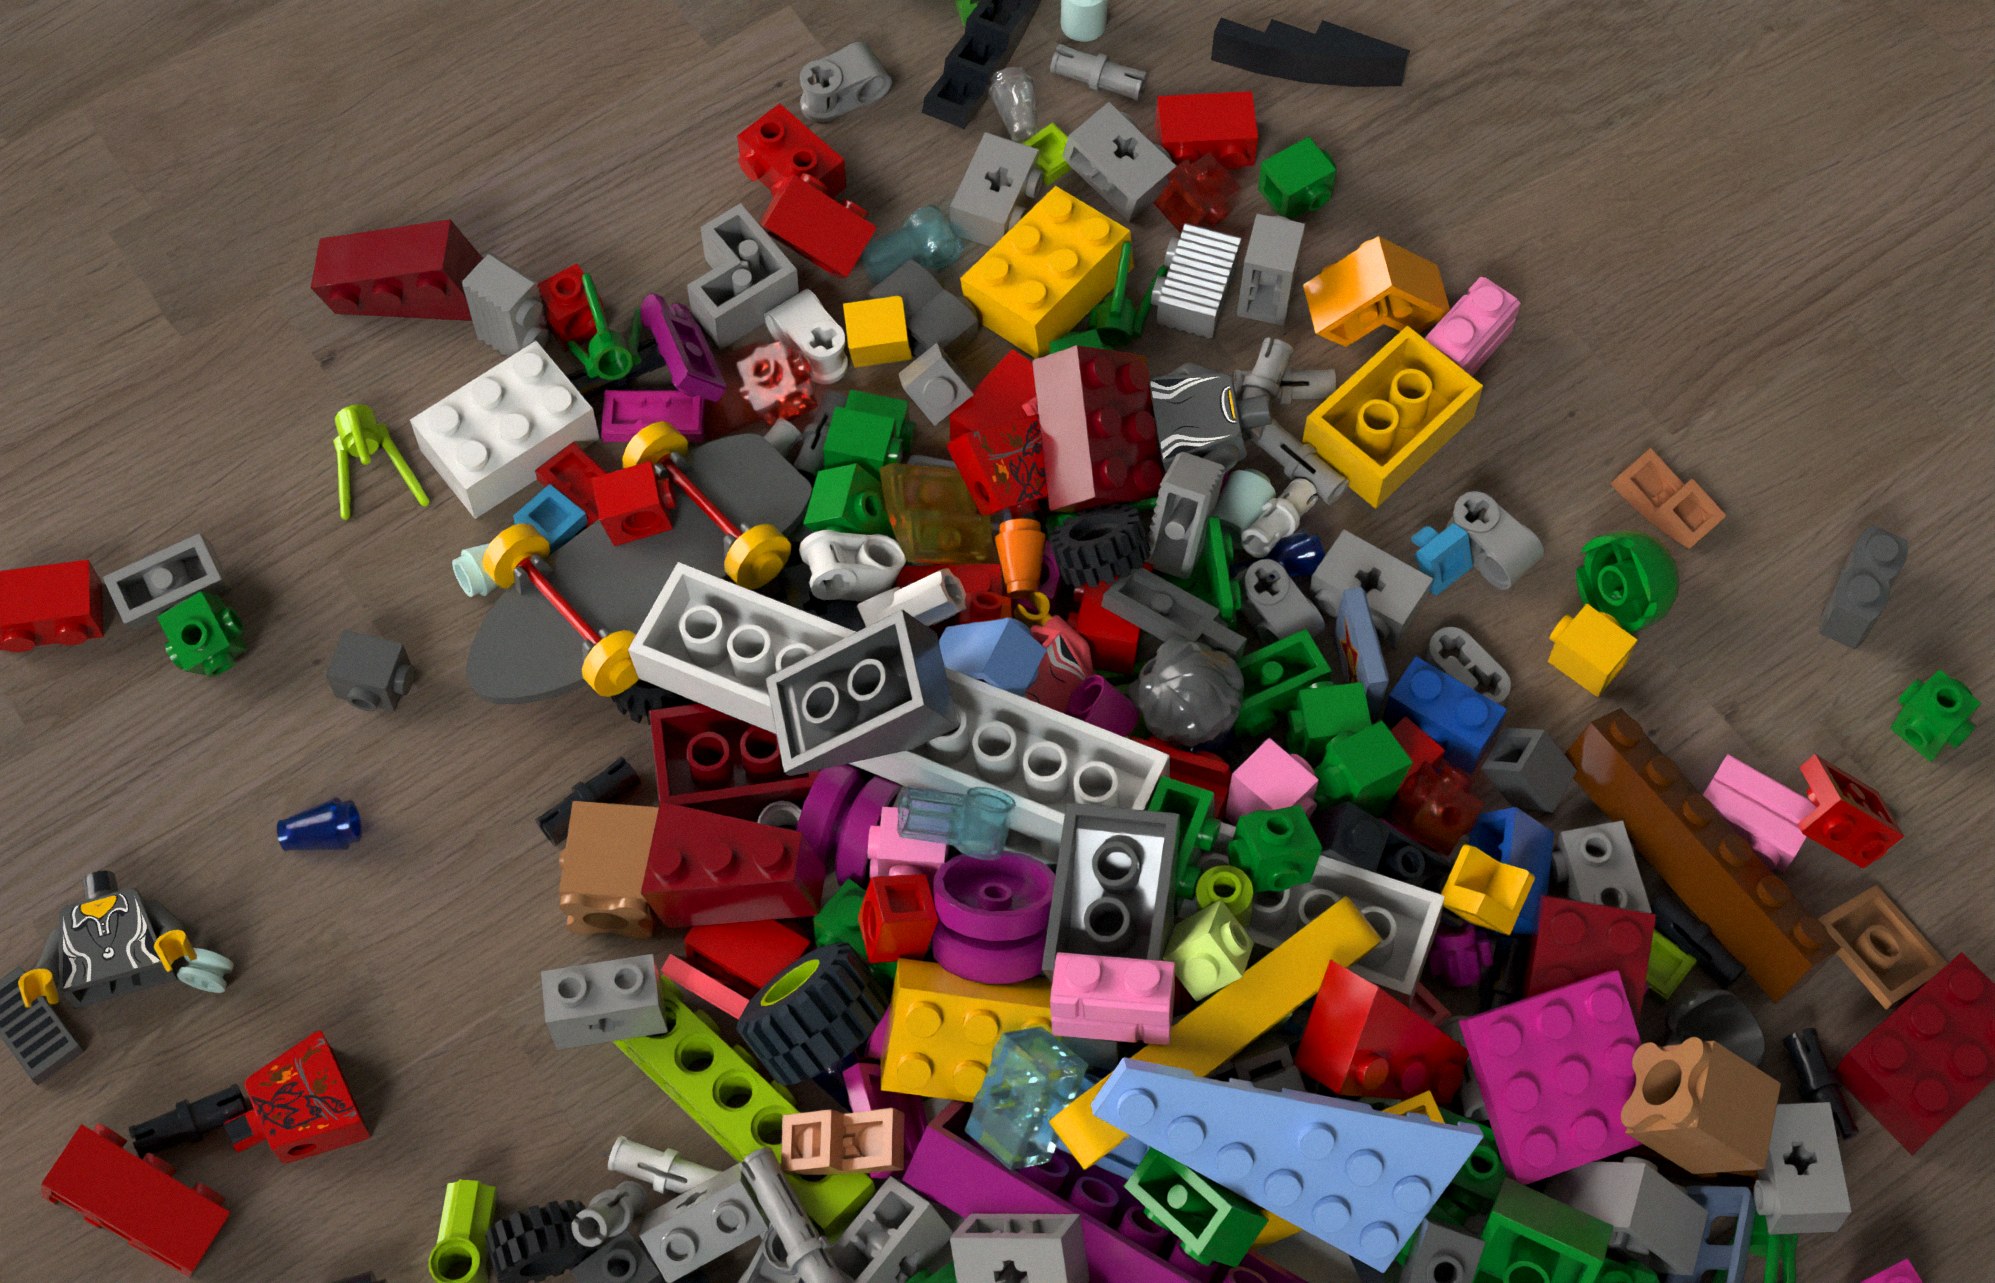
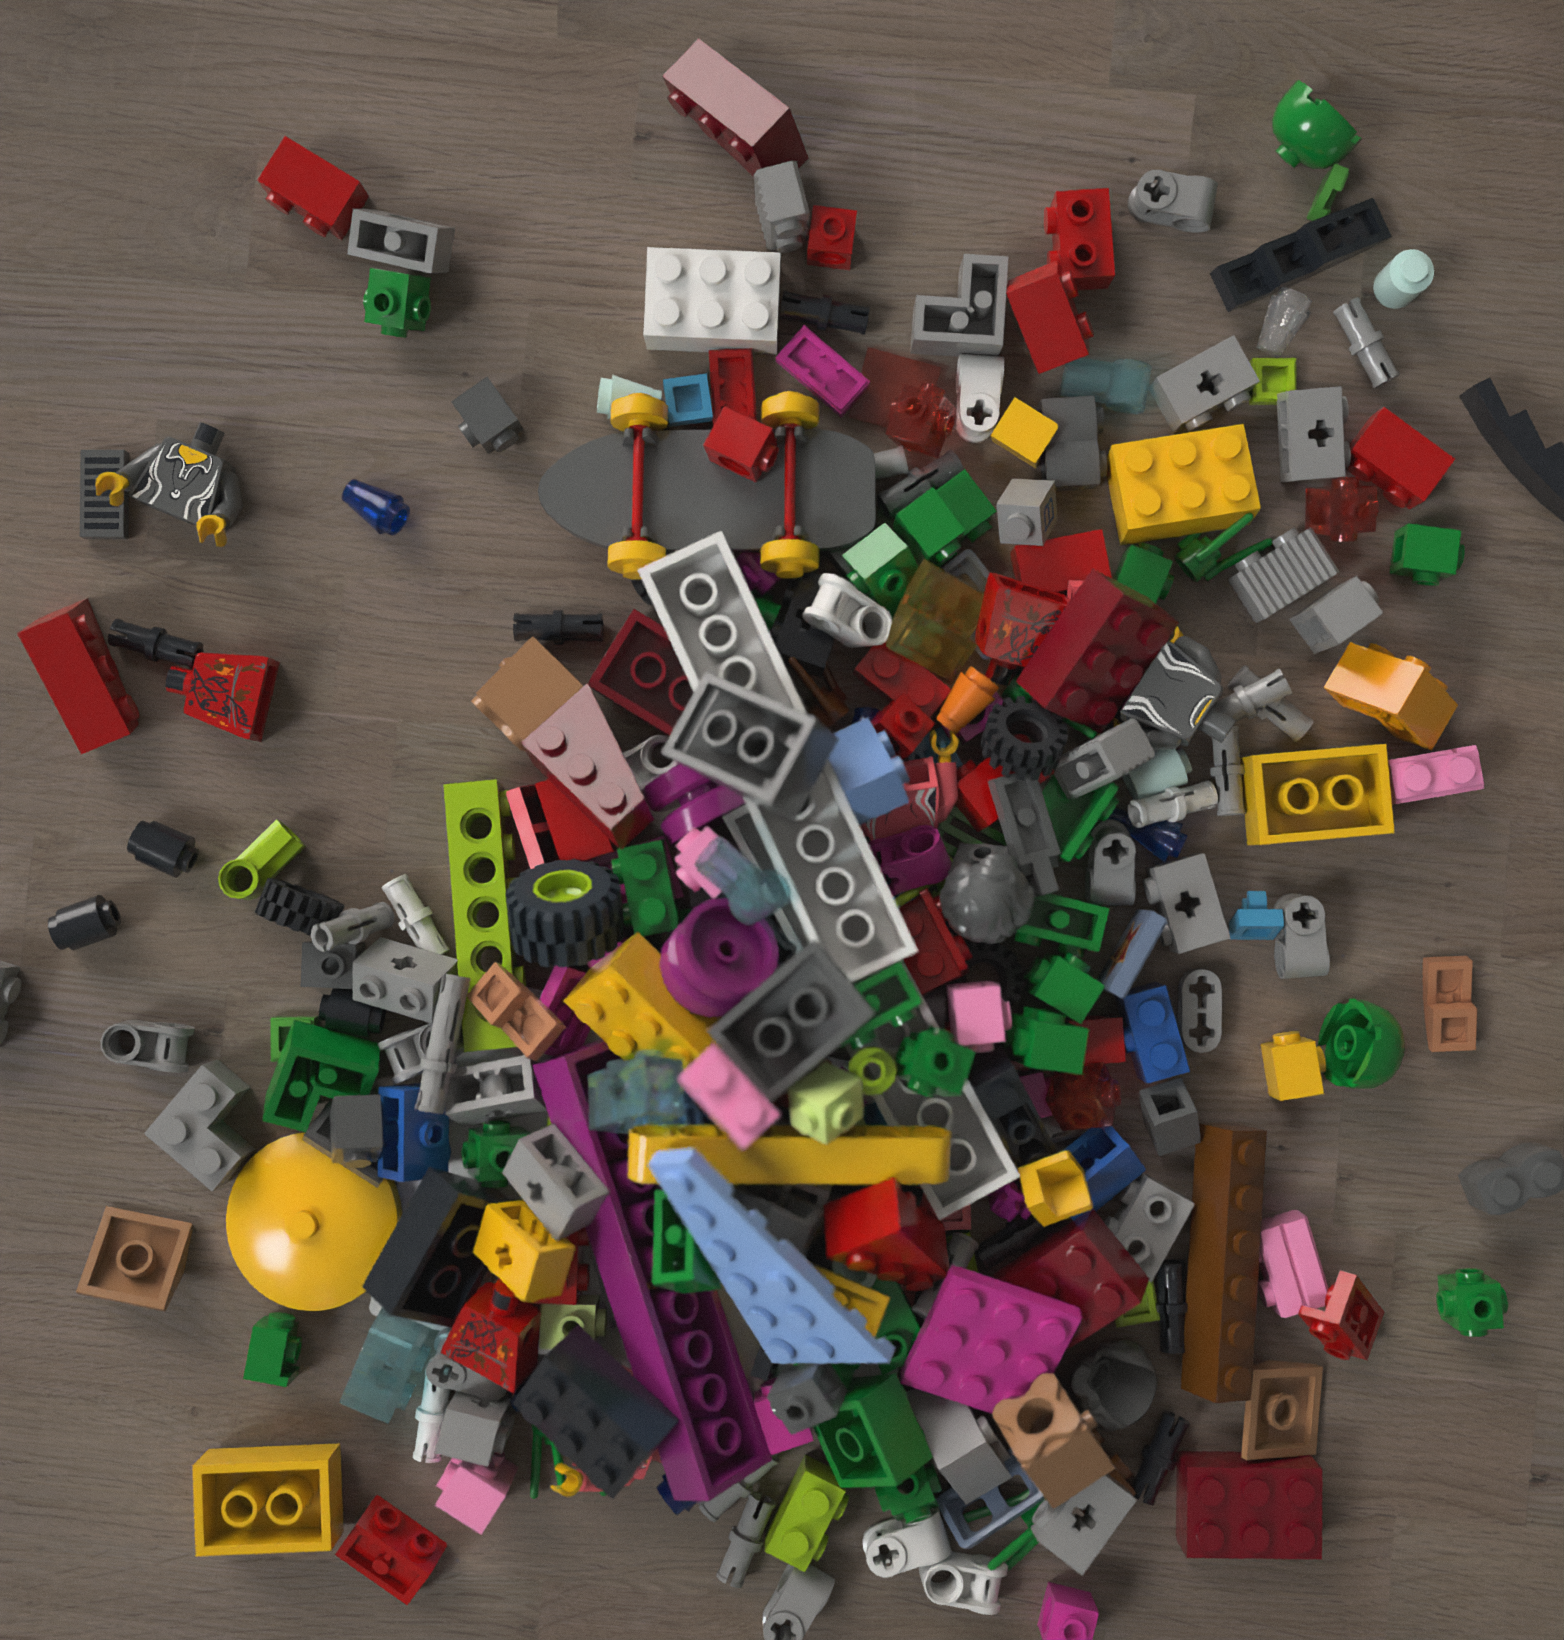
camera: 45 degrees right, 25 degrees up
(206, 971) = (236, 550): light aqua bush -> none
(361, 437) = (612, 224): lime plant -> none
(604, 1001) = (445, 793): light grey brick -> none
(609, 351) = (822, 304): green plant -> none
(683, 348) = (880, 338): magenta hinge -> none
(897, 918) = (656, 908): red brick -> none
(926, 600) = (850, 679): white piece -> none

